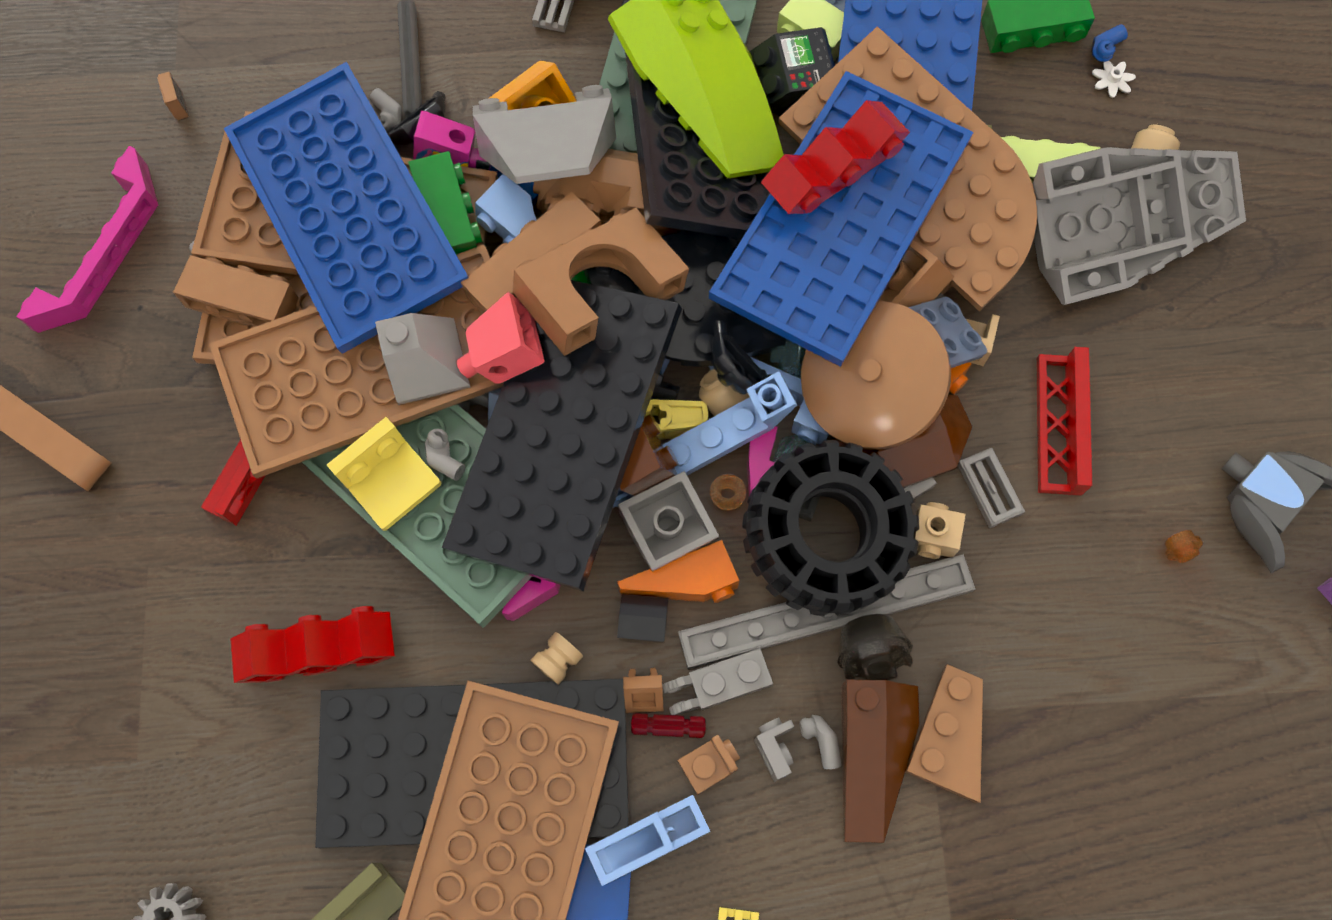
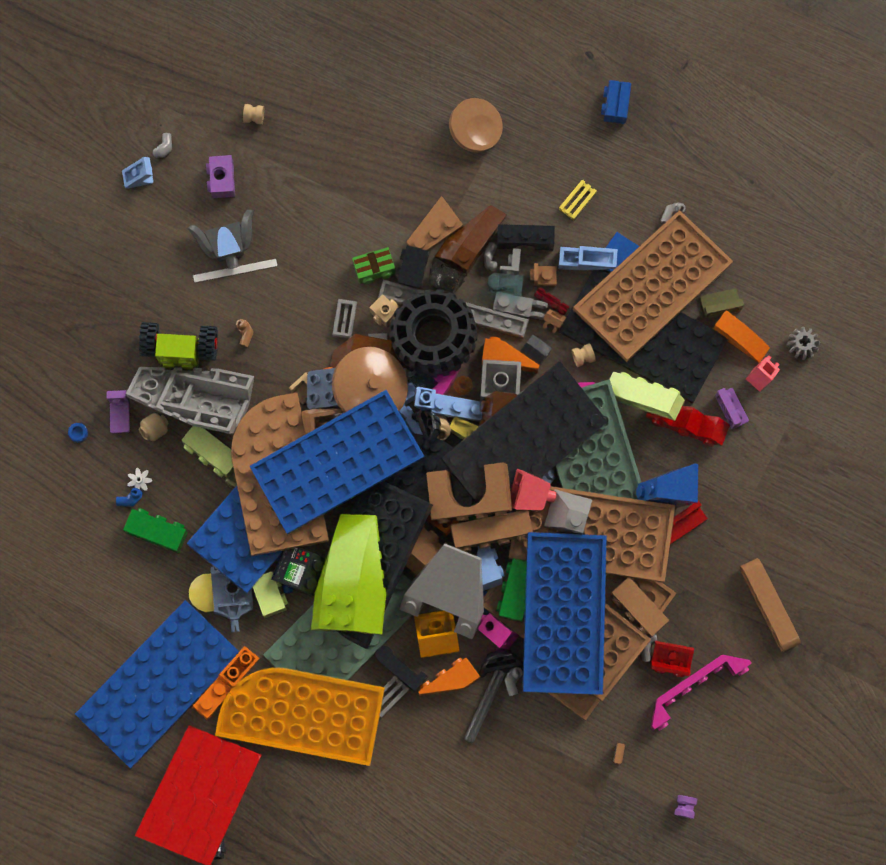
camera: 150 degrees left, 5 degrees up
(36, 81) = (685, 806): none -> medium lavender wheel
(151, 261) = (672, 659): none -> red bracket
(214, 813) = (763, 373): none -> coral brick
(246, 718) = (731, 407): none -> medium lavender bracket
(279, 507) = (672, 488): none -> blue slope
(292, 862) = (741, 336): none -> orange slope
(384, 474) = (614, 469): light yellow bracket -> none
(402, 636) = (646, 396): none -> yellowish green brick
(439, 457) = (586, 467): light grey arm -> none
(472, 62) = (455, 679): none -> orange slope
(560, 35) = (400, 670): none -> black leg
(776, 703) = (505, 282): none -> clear light blue leg
(783, 812) = (538, 236): none -> black arch
(836, 159) = (327, 481): red brick -> none
(942, 636) = (413, 266): none -> black brick
(1007, 600) = (374, 266): none -> bright green brick
(1077, 422) = (286, 322): red fence -> none
(1127, 375) = (246, 331): none -> medium nougat arm
(1183, 546) = (281, 243): clear orange plate -> none
(1209, 135) = (119, 411): none -> medium lavender bracket
(1214, 270) = (178, 349): none -> brick
(1214, 469) = (241, 269): none -> white sticker
(1252, 90) = (78, 432): none -> blue tile

